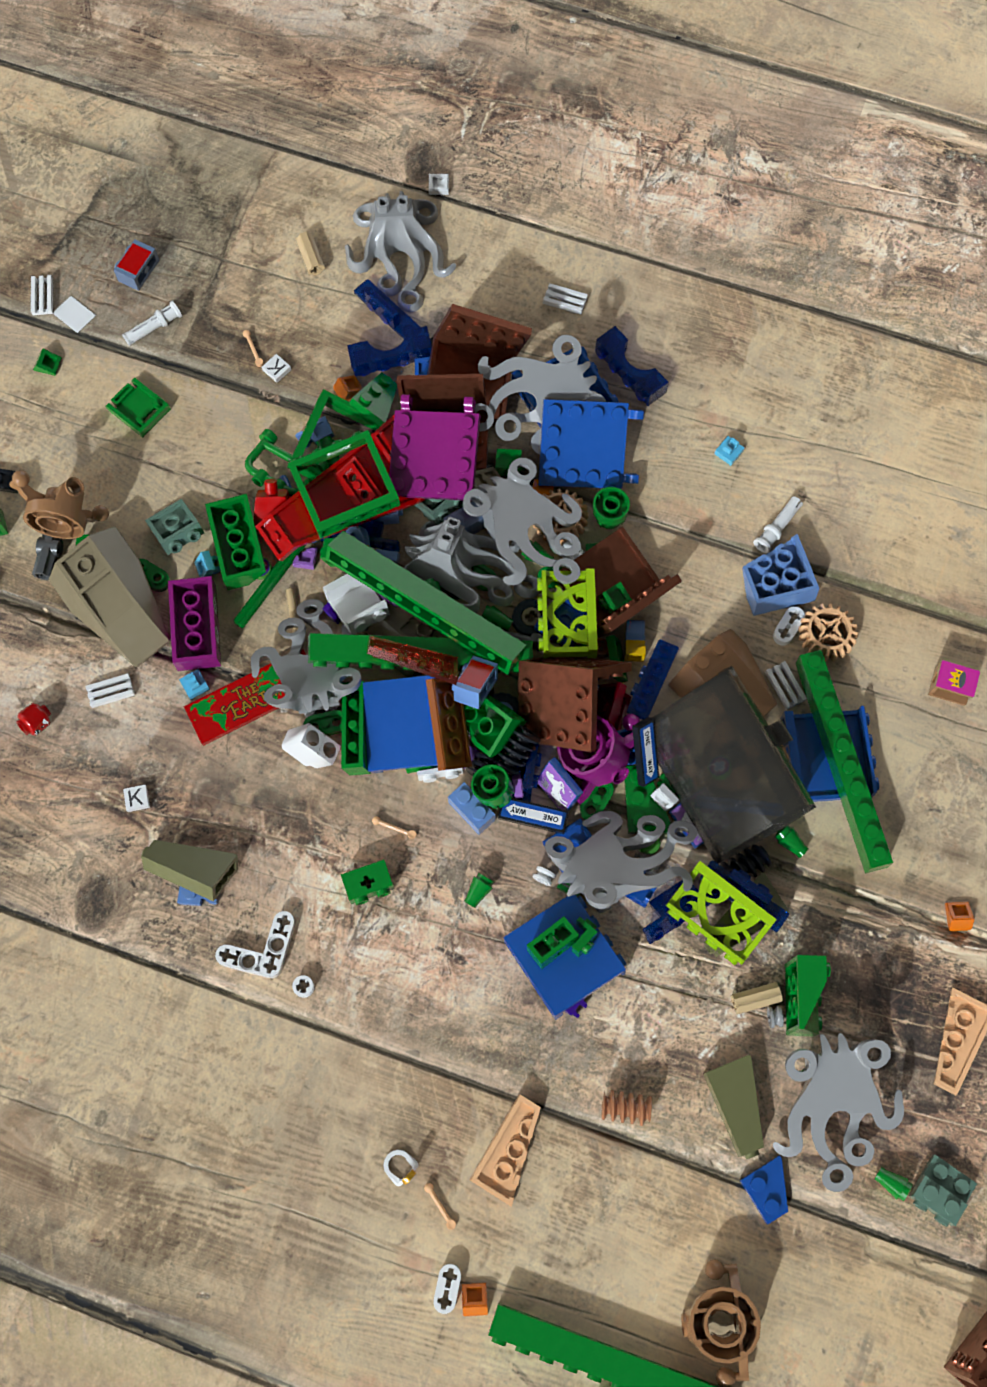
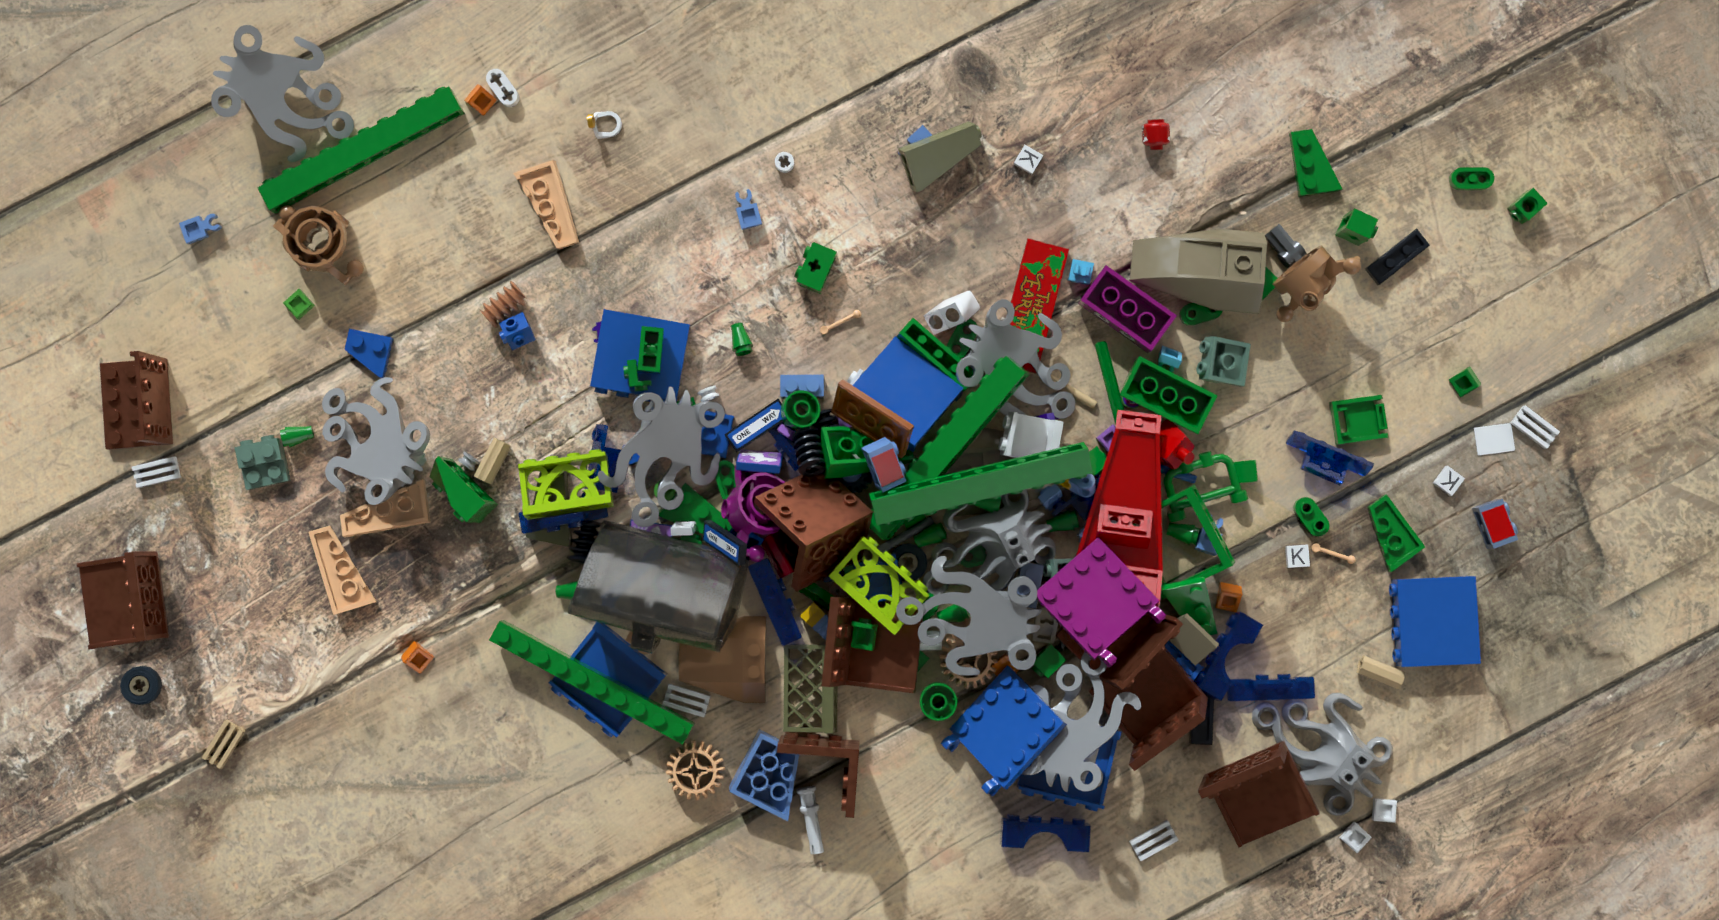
camera: 130 degrees right, 15 degrees up
(106, 683) = (1138, 190): white tile -> none
(130, 317) = (1448, 480): none -> white tile
(159, 319) = (1425, 501): white pin -> none
(188, 402) = (1326, 460): none -> clear blue bracket
(202, 320) = (1393, 533): none -> green wing
(239, 380) = (1311, 517): none -> green plate
(242, 247) = (1435, 621): none -> blue panel
(243, 446) = (1246, 471): none -> green slope
(262, 959) = (829, 150): white beam -> none
(355, 514) = (1165, 528): green window -> none
(371, 976) = (748, 213): none -> medium blue plate
(395, 532) = (1064, 522): none -> green cone
(396, 367) = (1193, 640): none -> dark tan slope
(403, 181) = (1384, 810): none -> white tile
(418, 659) = (934, 436): clear red wing -> none
(429, 1188) = (540, 126): light nougat hinge -> none
(467, 256) = (1259, 793): none -> copper bracket
(638, 1075) = (516, 331): none -> blue brick
(672, 596) = (828, 694): none -> olive fence
(720, 543) = (831, 747): none -> copper bracket
(729, 450) = (905, 842): medium azure tile -> none
(737, 1103) = (442, 383): olive slope -> none
(784, 623) = (733, 746): white beam -> none
(789, 1291) = (299, 304): none -> bright green tile
(859, 1026) = (401, 510): none -> light nougat wing
(953, 682) = (573, 822): piece -> none

